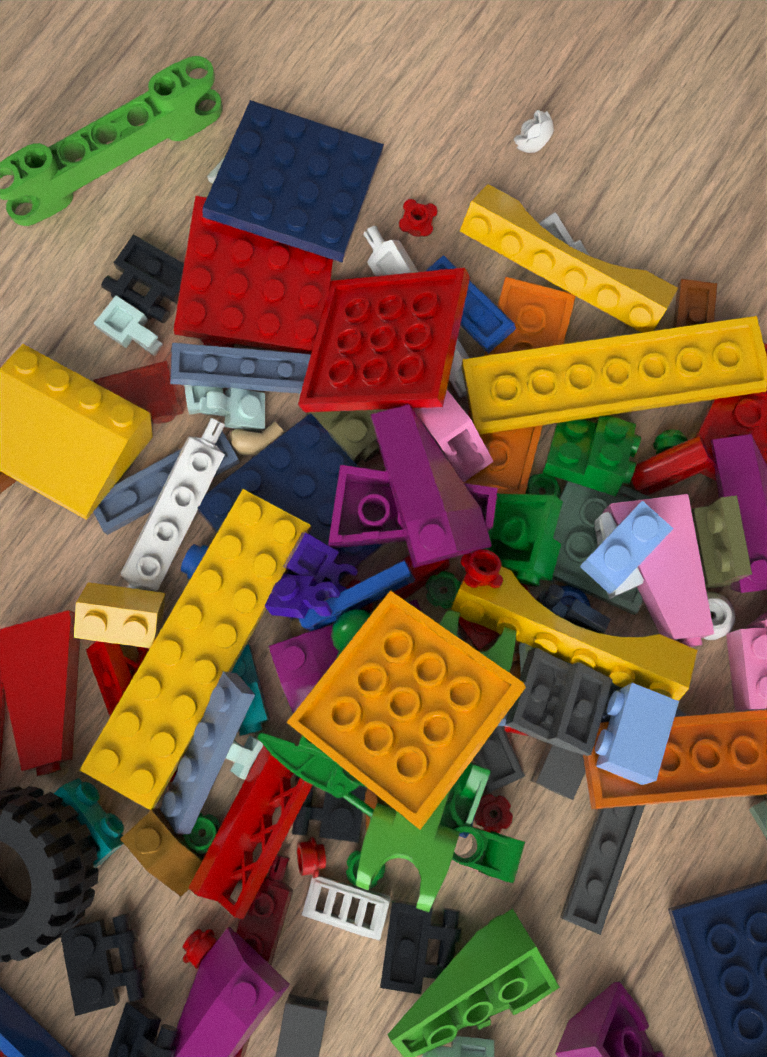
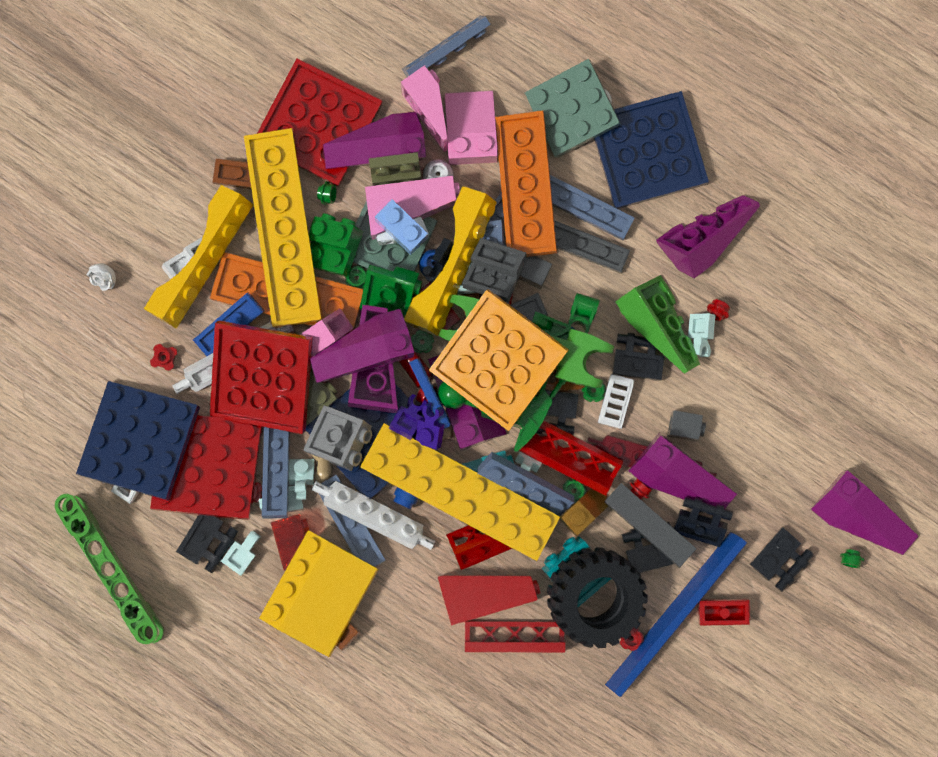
camera: 90 degrees left, 5 degrees up
(119, 615) = (440, 544): yellow brick -> none
(132, 967) = (650, 525): none -> dark grey tile
(288, 457) = (338, 438): none -> light grey plate
(310, 857) = (587, 423): red plate -> none
(482, 569) = (412, 309): red plate -> none
(502, 807) = (562, 305): red plate -> none
(636, 733) = (513, 225): light blue brick -> none
(666, 867) = (590, 209): none -> sand blue plate
(672, 466) = (342, 194): red brick -> none

